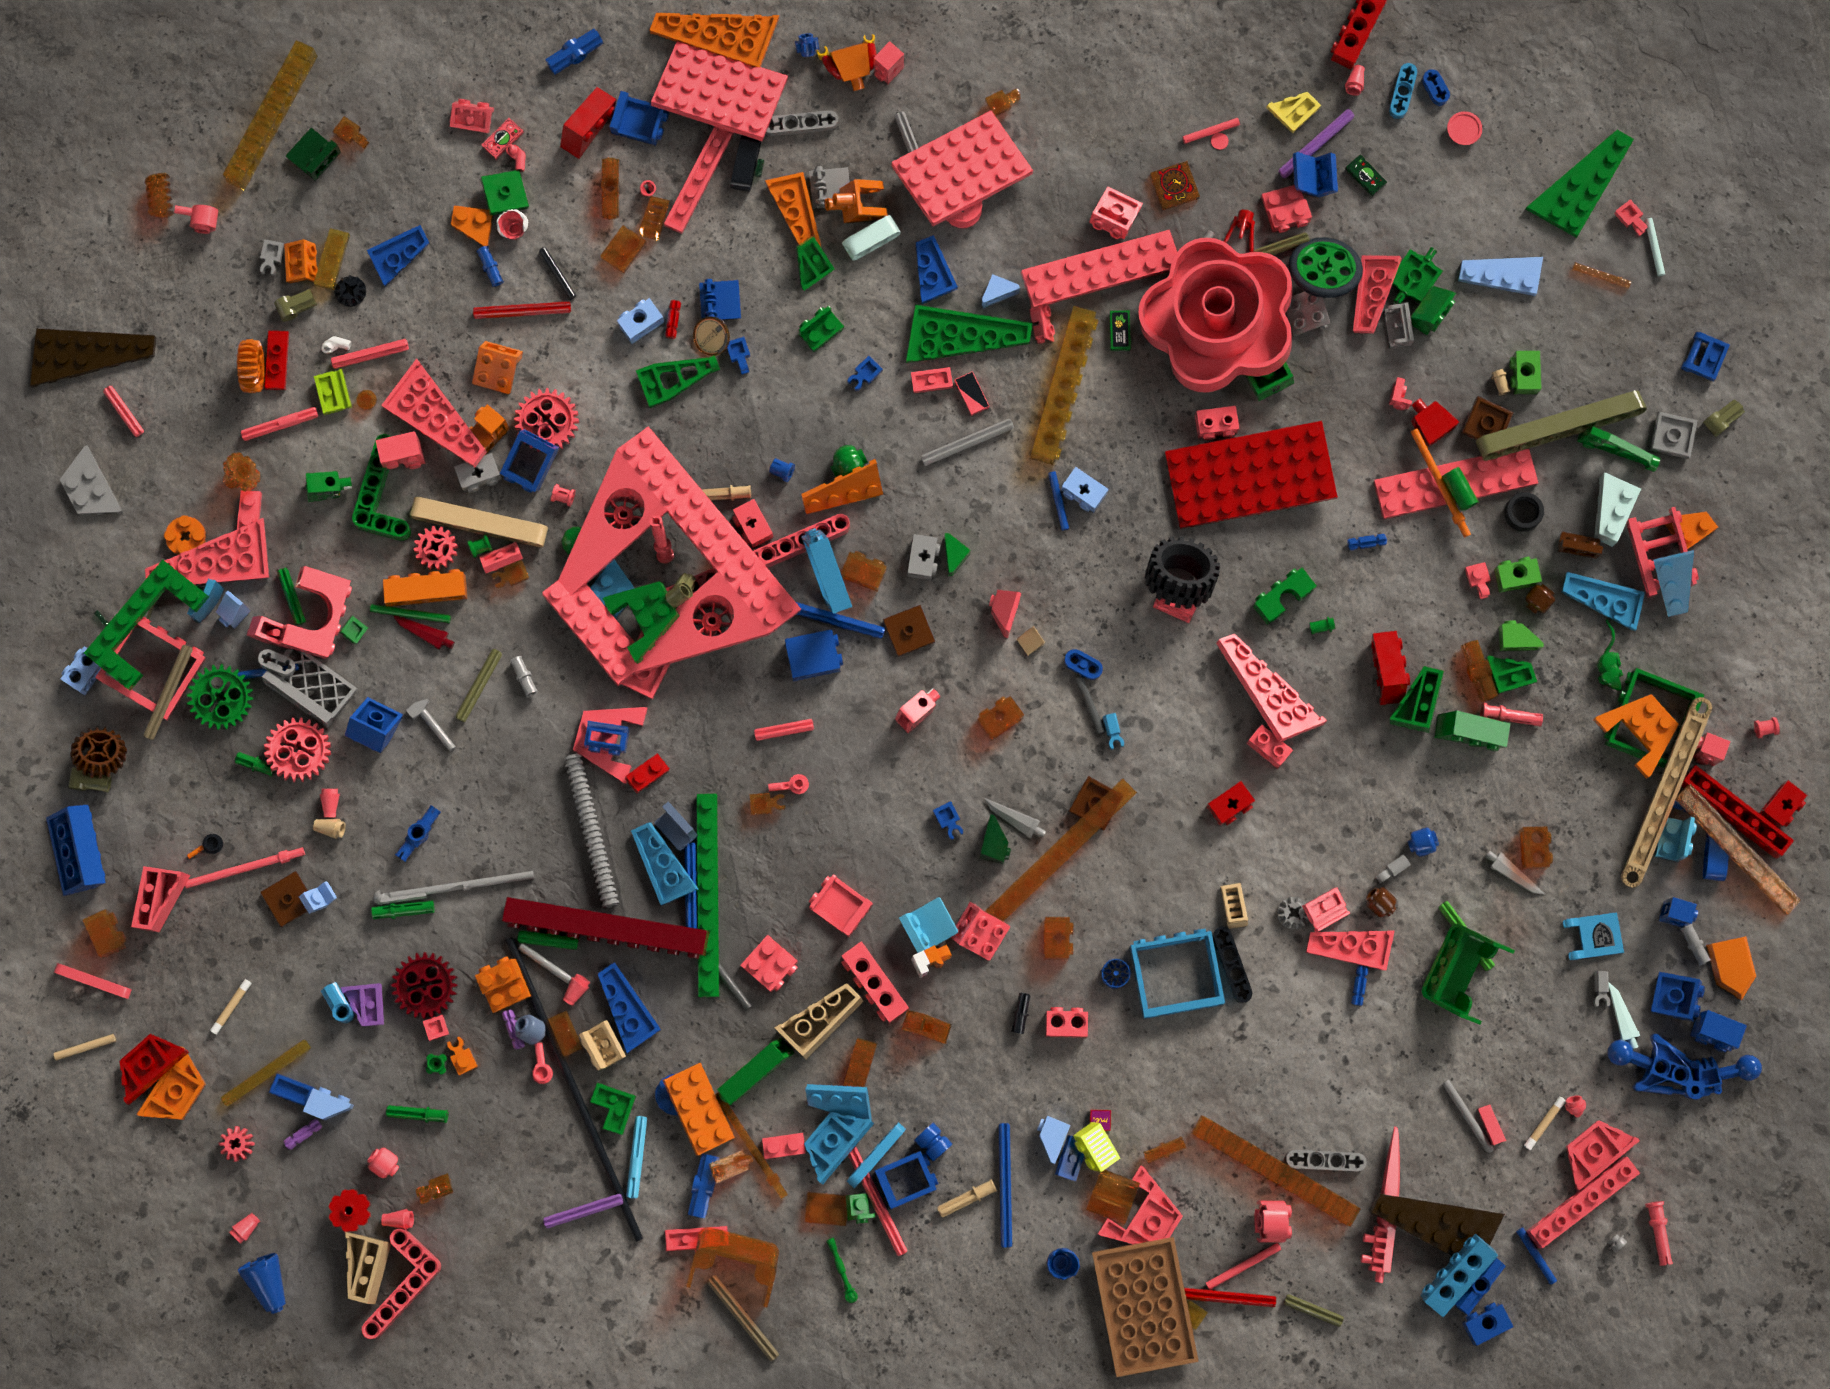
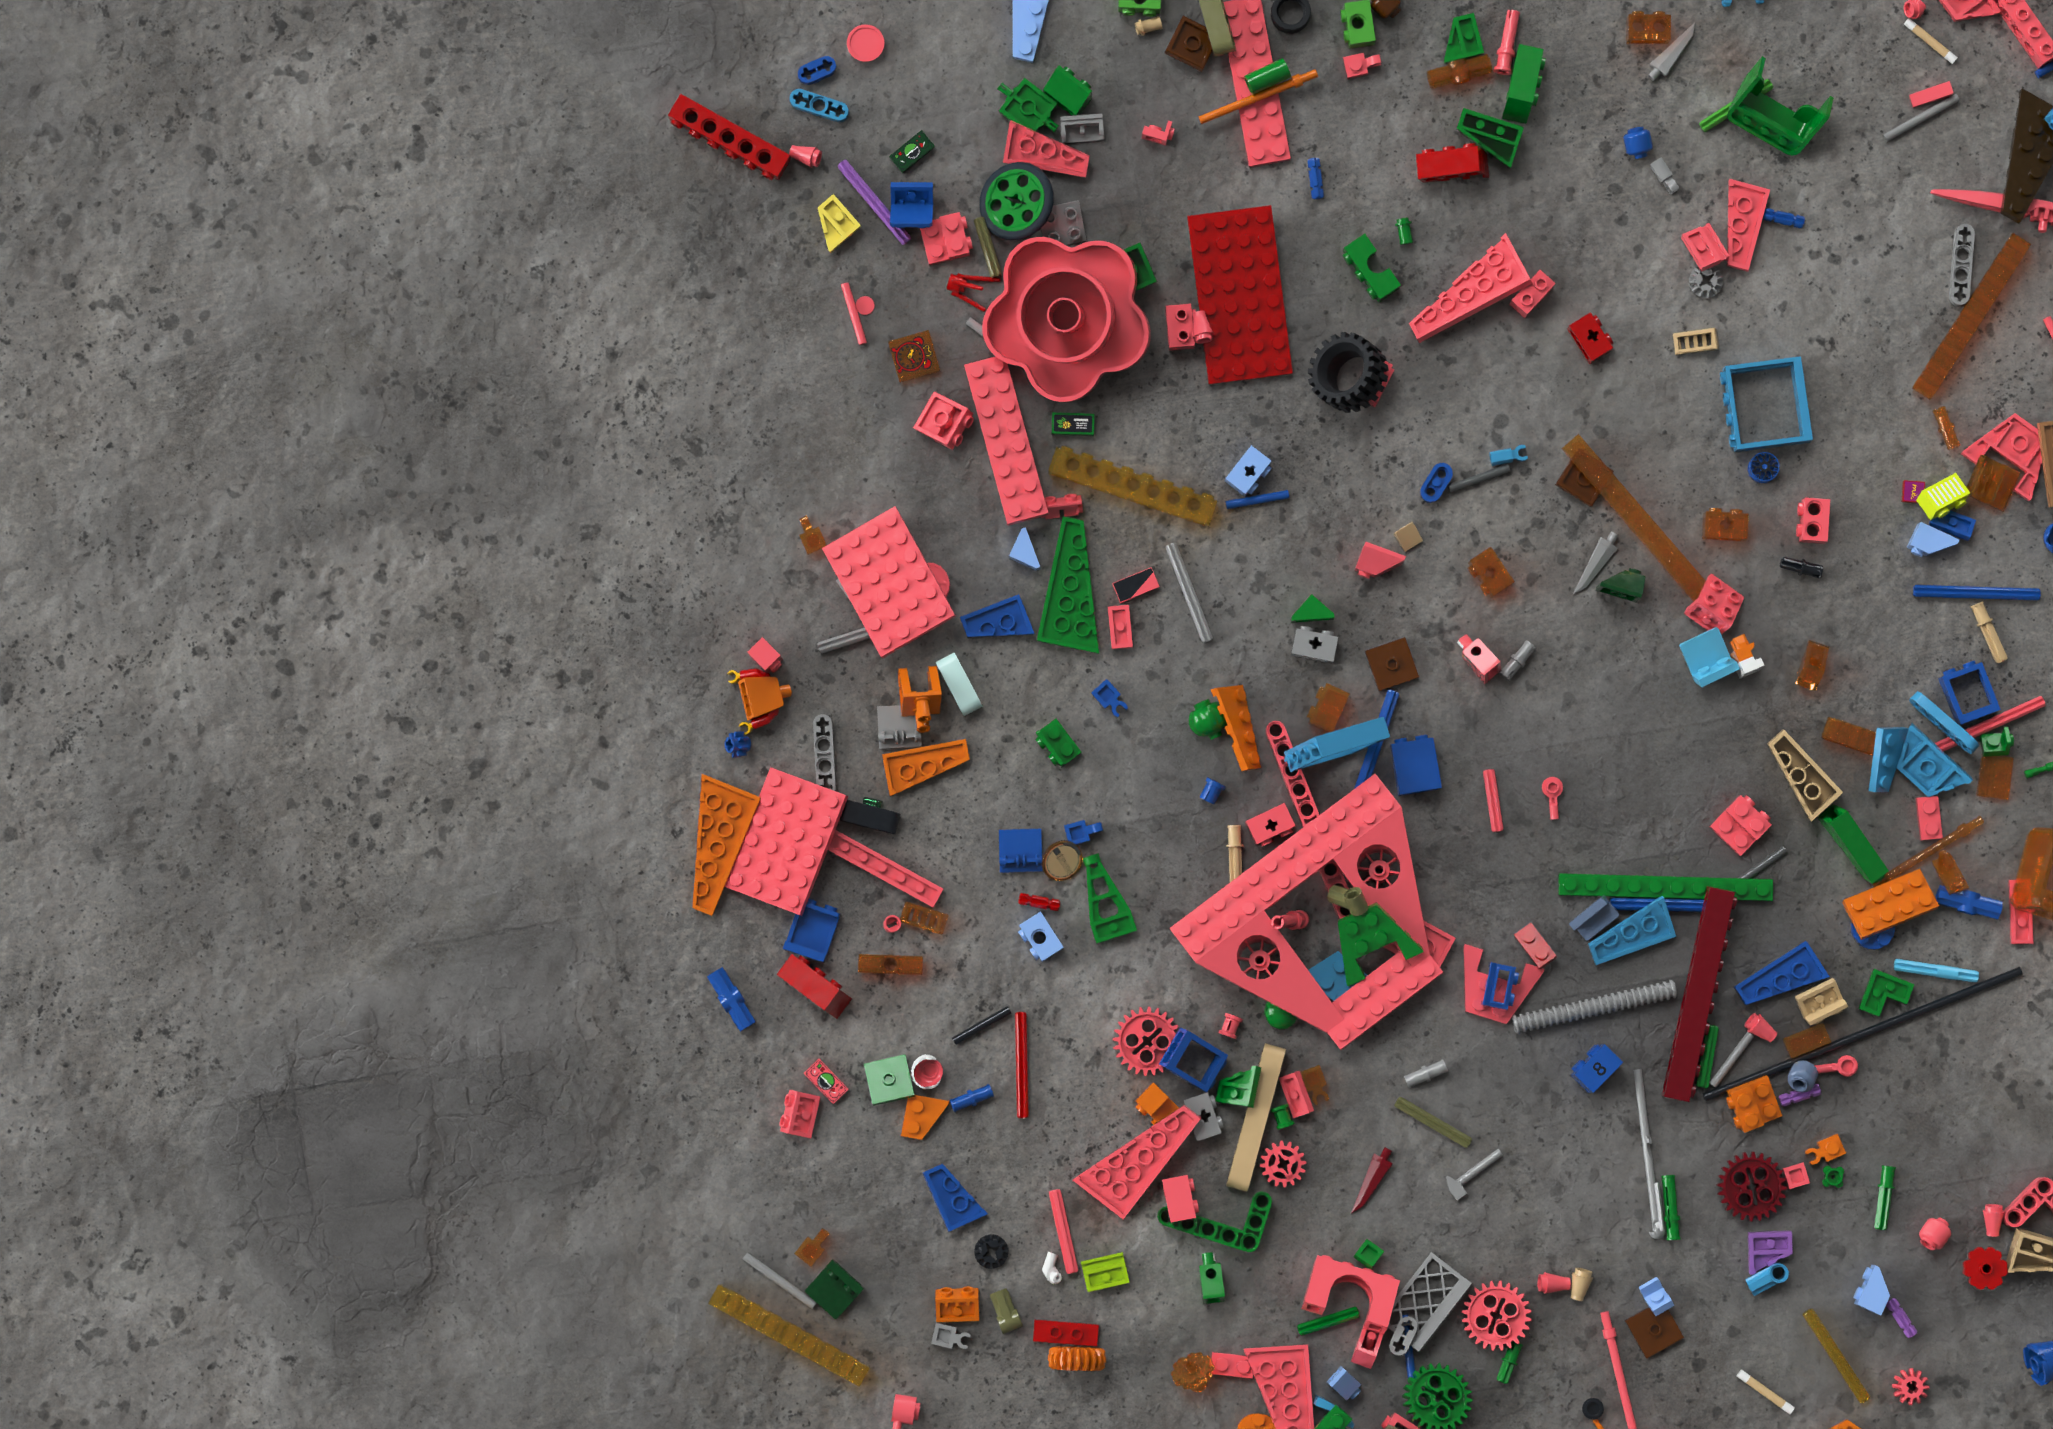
camera: 80 degrees left, 5 degrees up
(244, 1228) = (1997, 1380): coral cone -> none
(279, 423) = (1137, 1331): coral axle -> none
(291, 1089) = (1855, 1328): blue tile -> none
(321, 105) = (779, 1280): none -> light grey bar
(331, 259) = (955, 1270): clear yellow plate -> none
(366, 399) = (1114, 1235): clear orange plate -> none
(373, 724) = (1472, 1234): blue slope -> none
(410, 613) = (1357, 1163): green bar -> none
(424, 824) = (1599, 1197): blue pin -> none
(425, 588) = (1327, 1176): orange brick -> none
(437, 1188) = (1962, 1177): clear orange plate -> none
(496, 367) = (1084, 1093): orange bracket -> none
(504, 503) = (1239, 1088): none -> green wing
(518, 155) = (846, 1064): coral arm -> none
(531, 831) = (1596, 1068): none -> blue brick
(582, 1211) = (1990, 1027): medium lavender axle -> none
(623, 249) = (959, 952): clear orange plate -> none
(762, 803) = (1572, 825): clear orange plate -> none
(812, 263) = (986, 749): green wing -> none
(840, 905) = (1682, 748): coral panel -> none
(860, 954) = (1734, 730): coral brick -> none
(917, 747) = (1517, 660): none -> light grey pin
(933, 1142) = (1929, 665): blue wheel -> none
(947, 817) = (1594, 633): blue plate -> none
(1215, 438) = (1201, 328): none -> coral cone
(1236, 963) = (1758, 350): black beam -> none
(1272, 1221) = (2024, 322): coral brick -> none
(1381, 902) = (1699, 190): reddish brown head -> none
(1432, 421) = (1189, 100): red torso -> none
(1517, 638) = (1426, 30): bright green slope -> none

